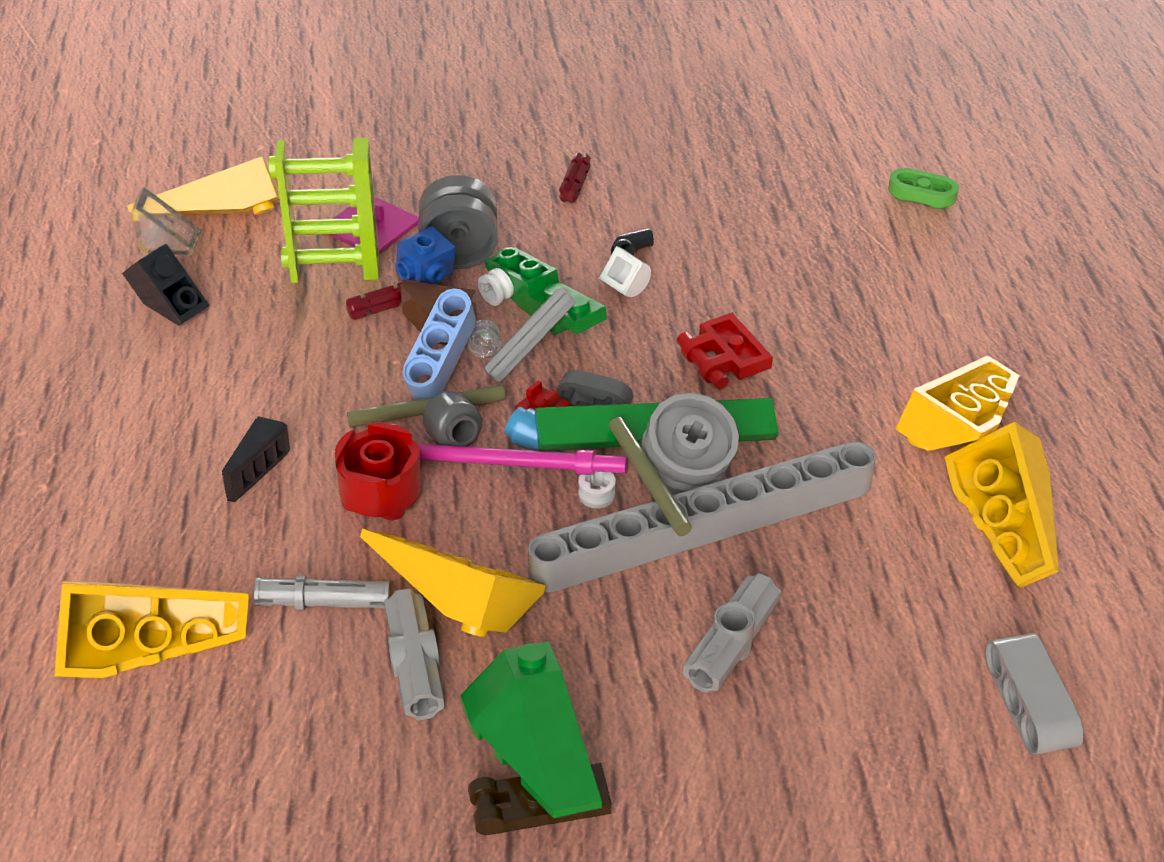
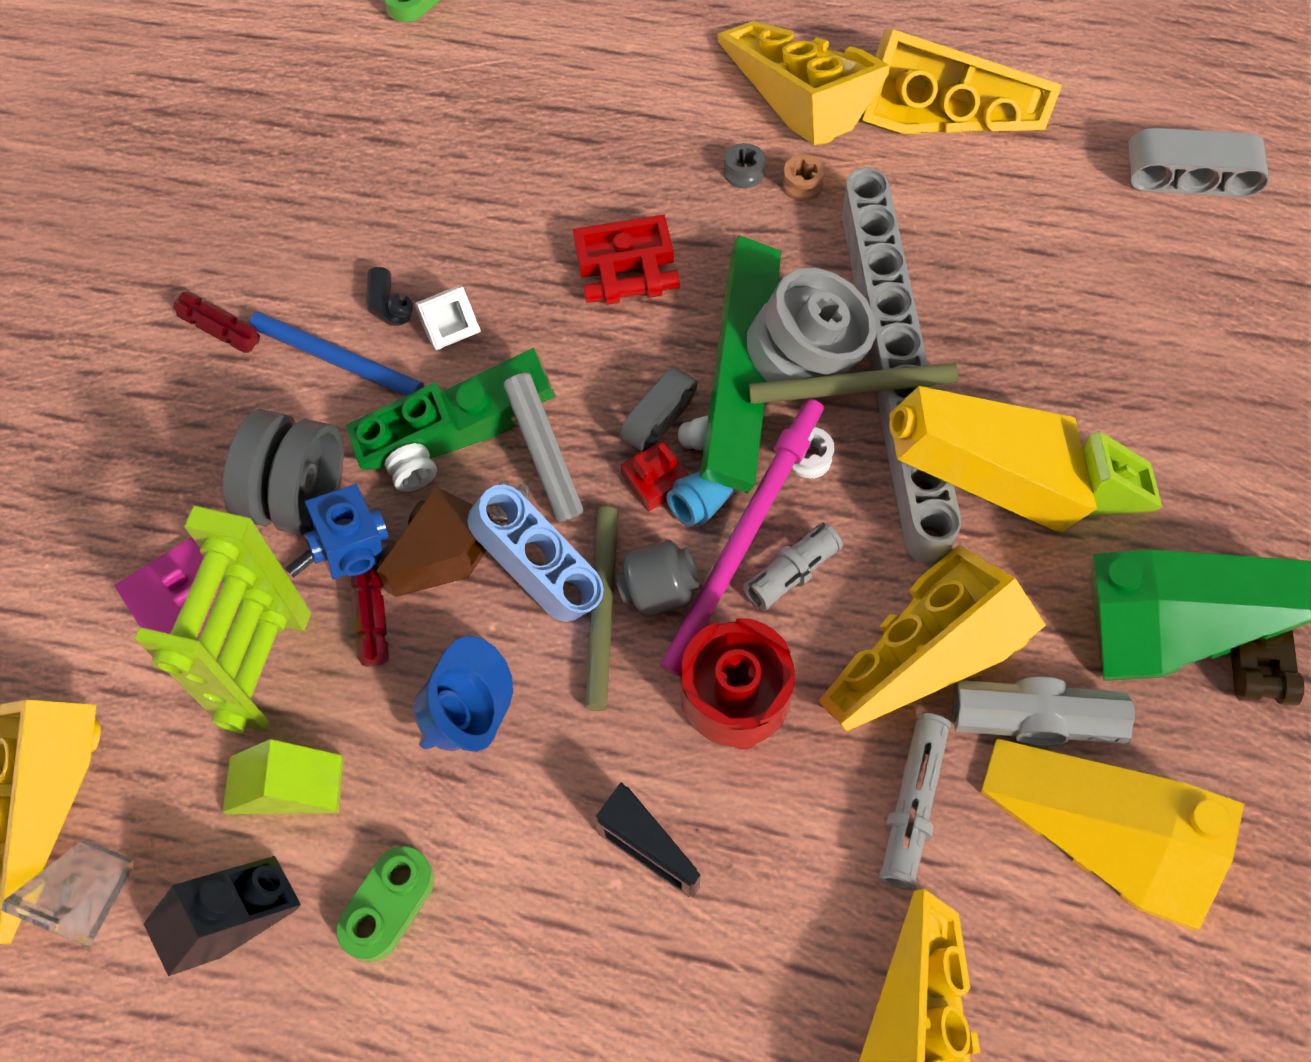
camera: 70 degrees left, 20 degrees up
(189, 357) = (387, 903): none -> bright green plate
(256, 294) = (283, 780): none -> lime slope
(332, 346) = (464, 697): none -> blue piece
(332, 726) = (1135, 830): none -> yellow wedge
(490, 492) = (792, 566): none -> light grey pin
(574, 236) = (335, 354): none -> blue bar
(623, 573) = (998, 452): none -> yellow slope
(644, 668) = (1119, 477): none -> lime slope
(732, 633) = (1093, 394): light grey piece -> none
(853, 407) = (746, 176): none -> dark grey bush
(866, 426) = (812, 171): none -> nougat bush

